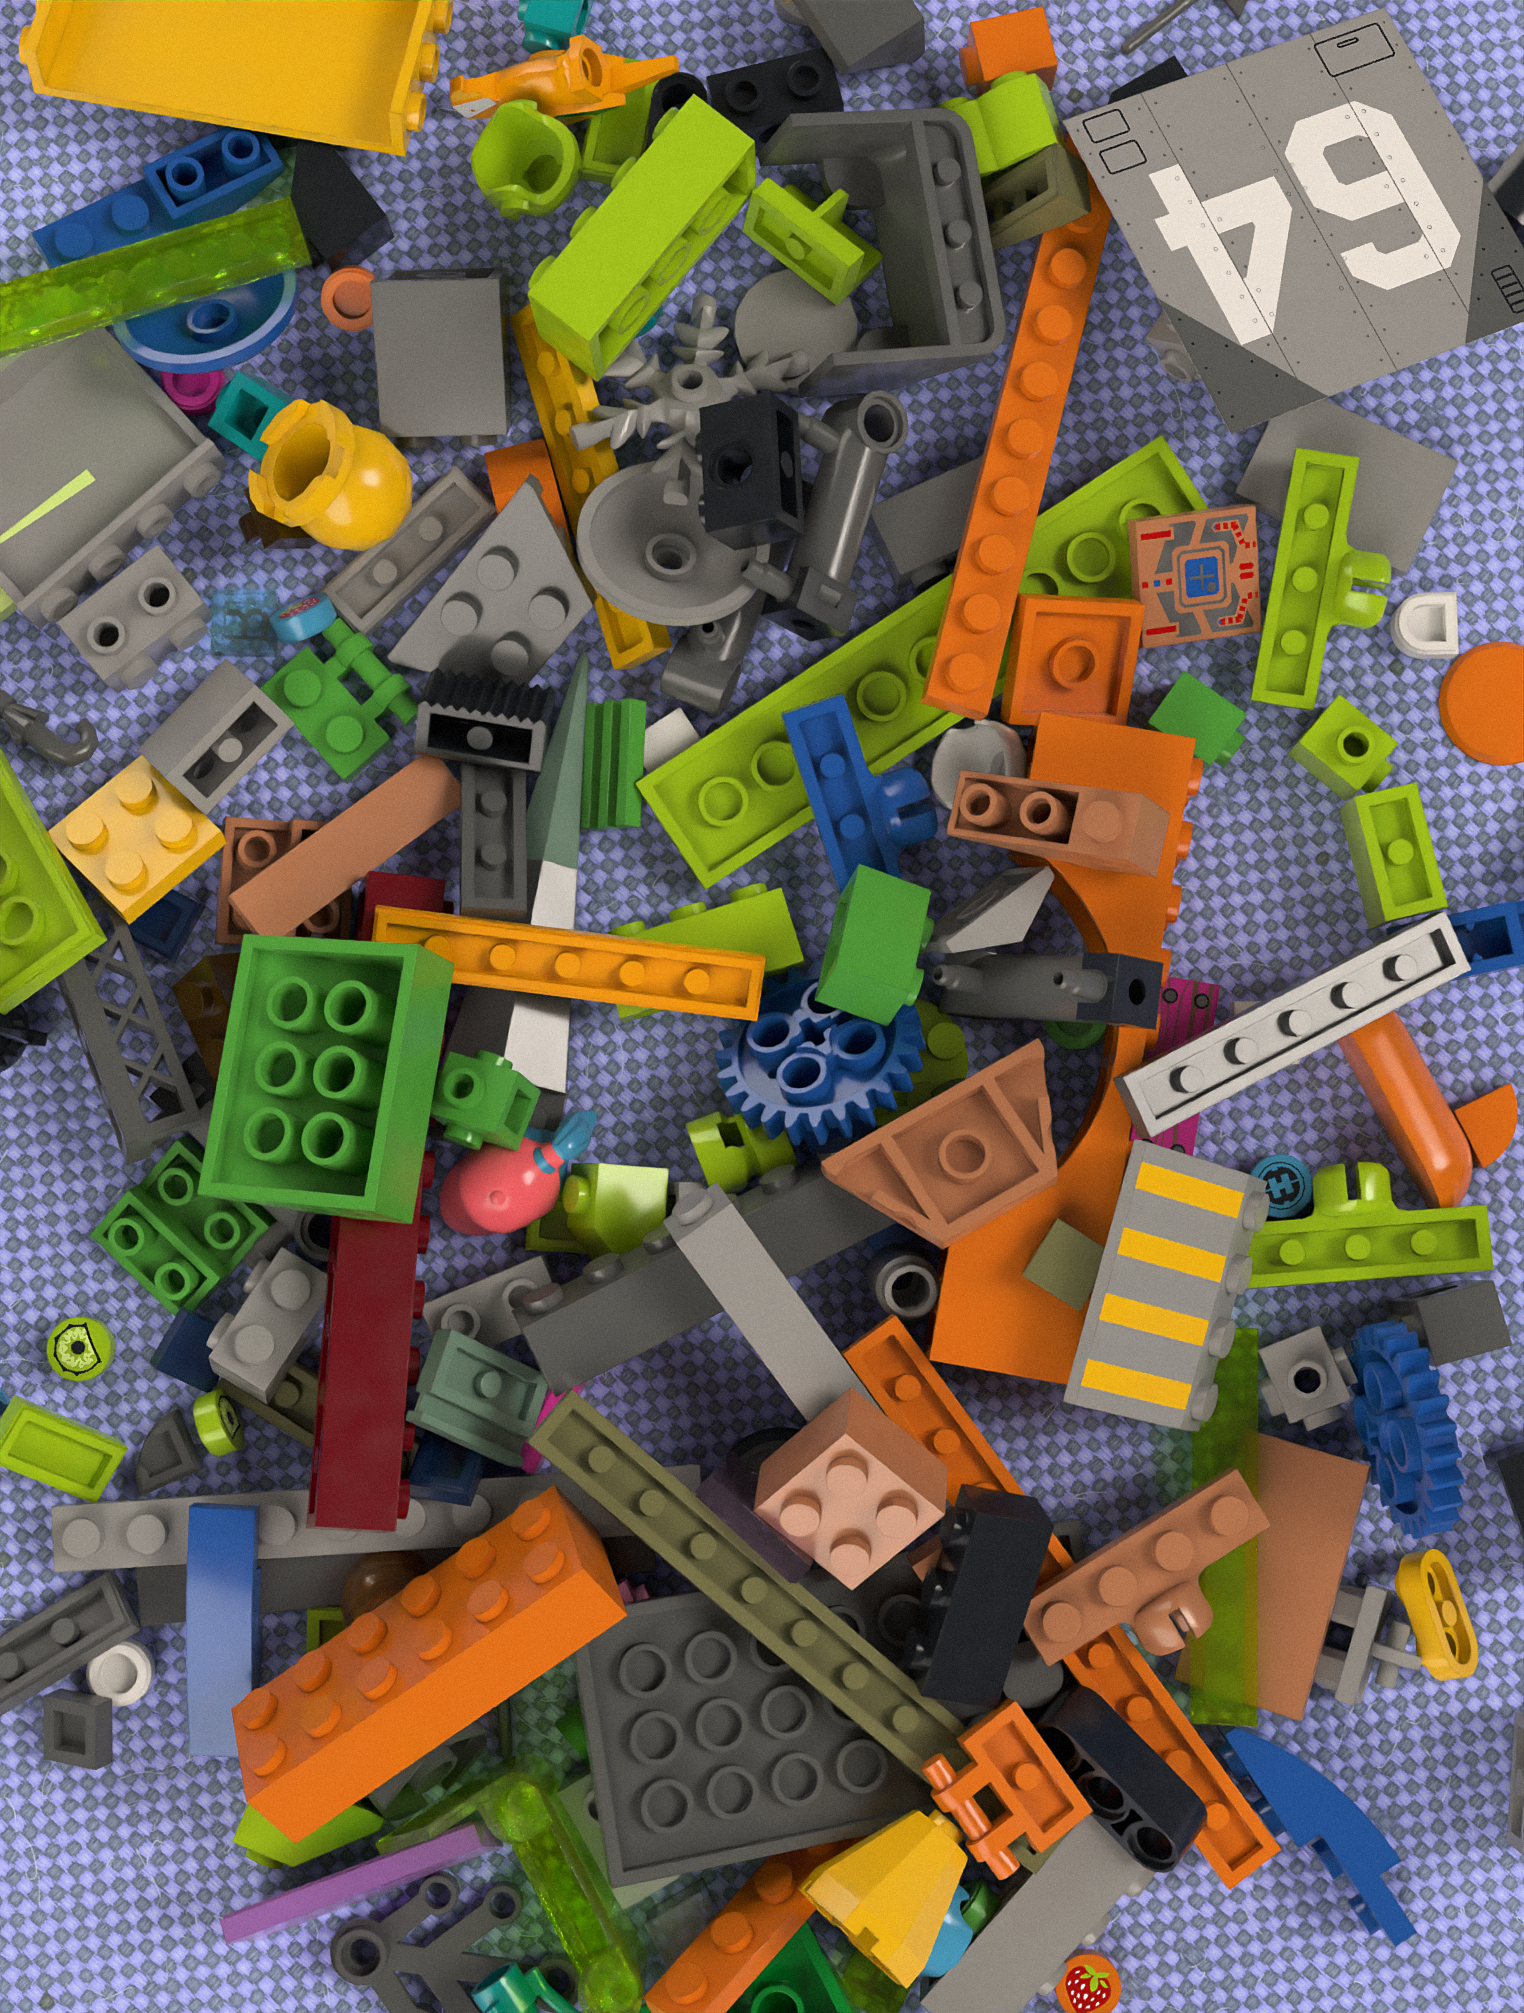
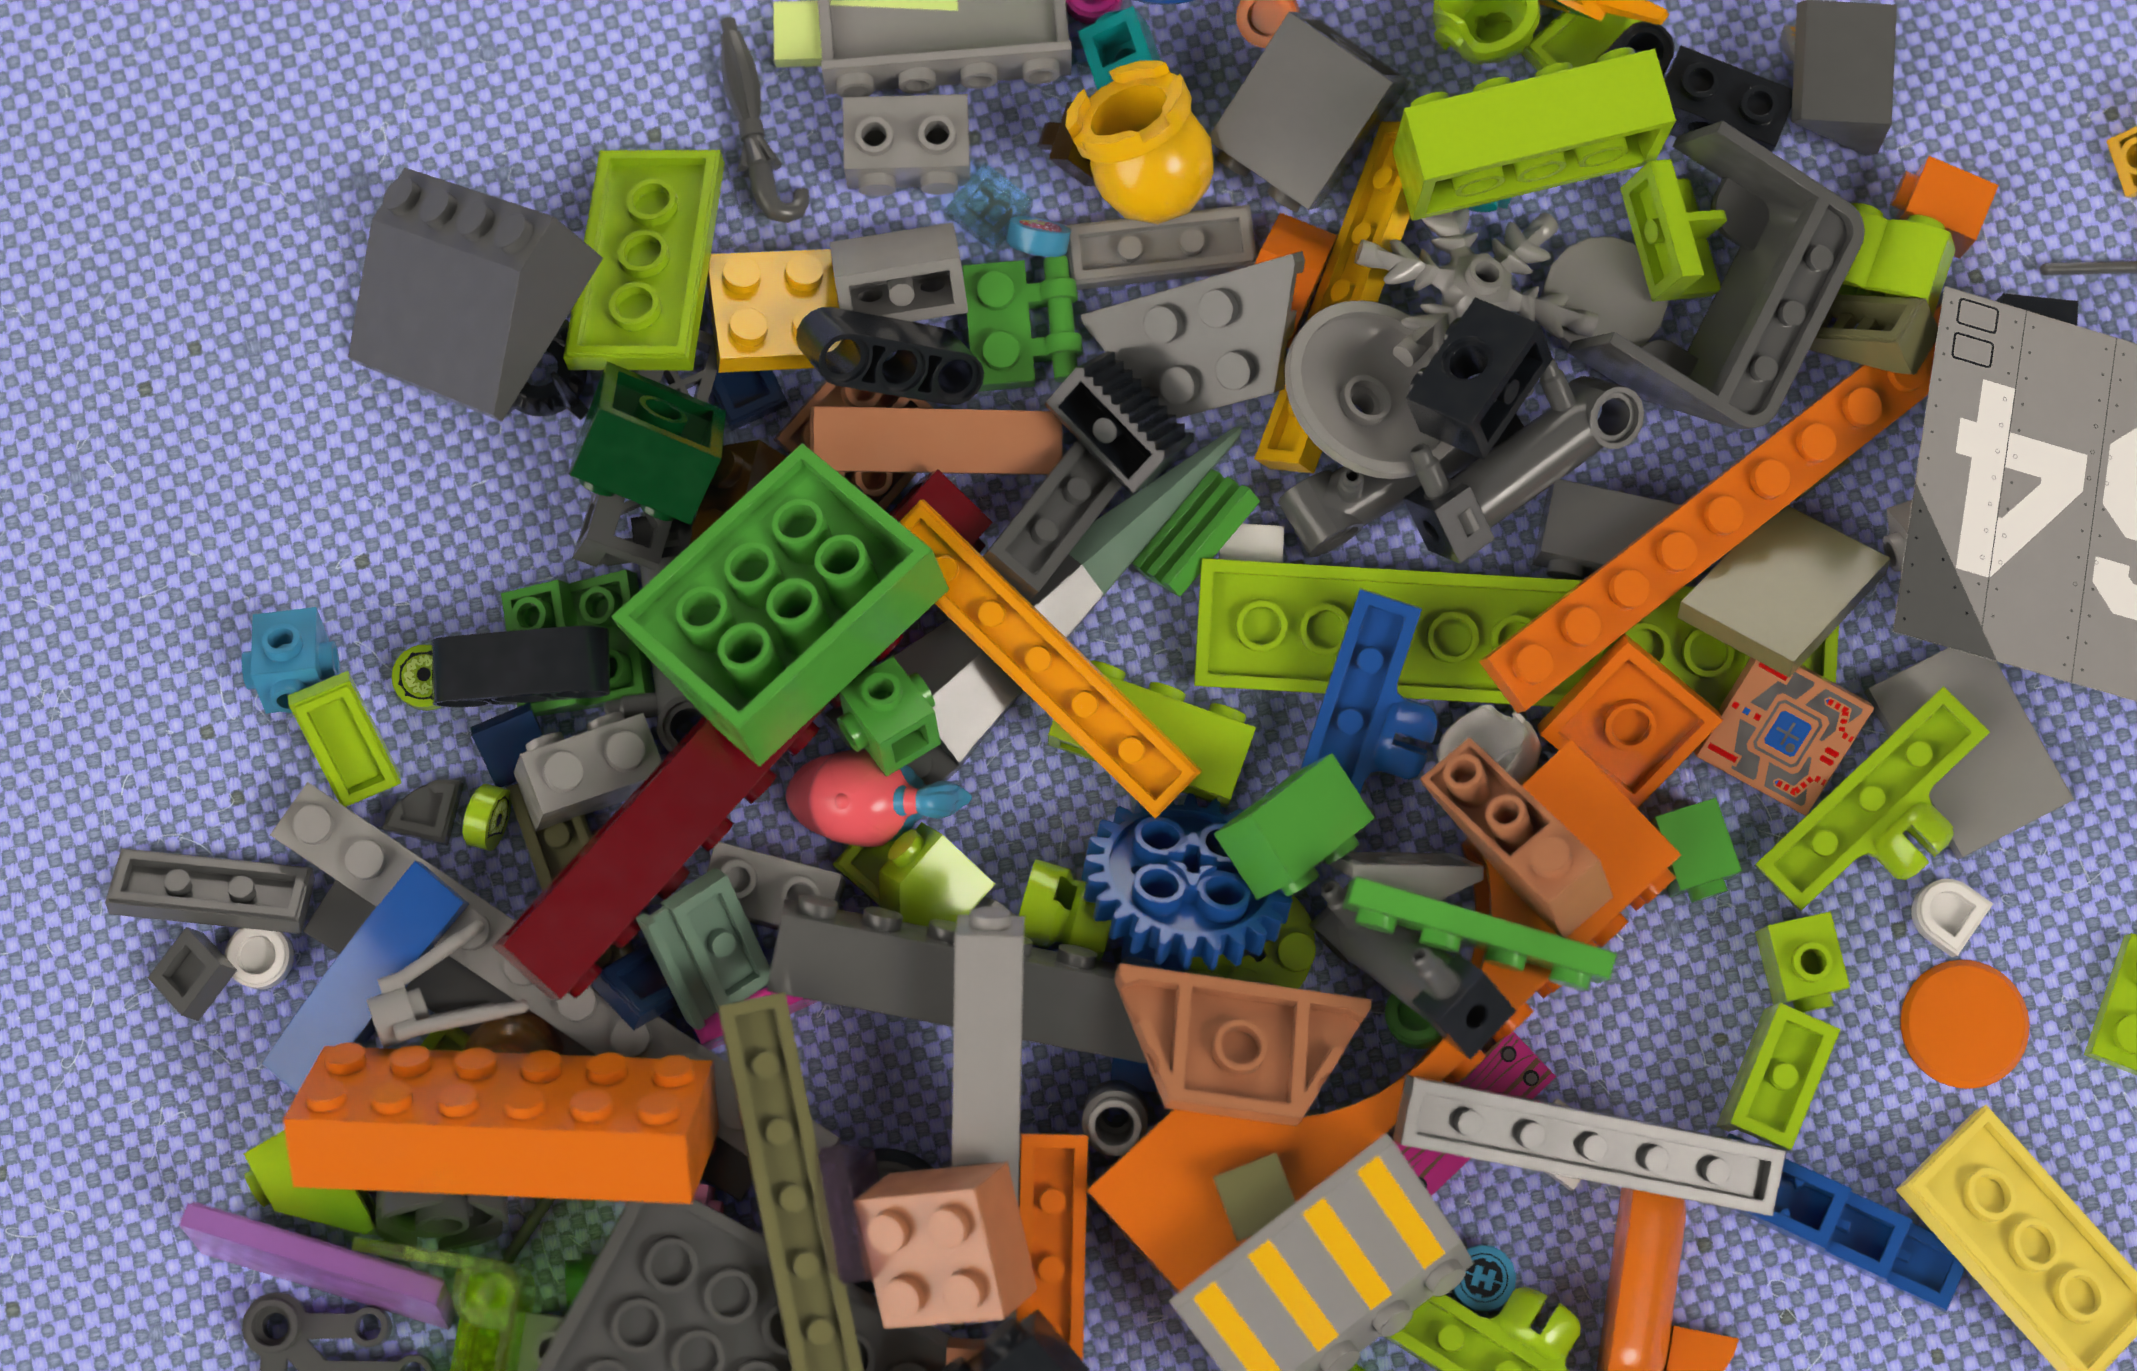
camera: 35 degrees right, 5 degrees down
(118, 1028) = (648, 445): none -> dark green slope
(153, 1284) = (521, 666): none -> black beam
(233, 807) = (868, 342): none -> black beam
(277, 1635) = (404, 1013): none -> light grey plant
(1114, 915) = (1505, 942): none -> bright green plate
(1116, 463) = (1784, 589): none -> olive tile

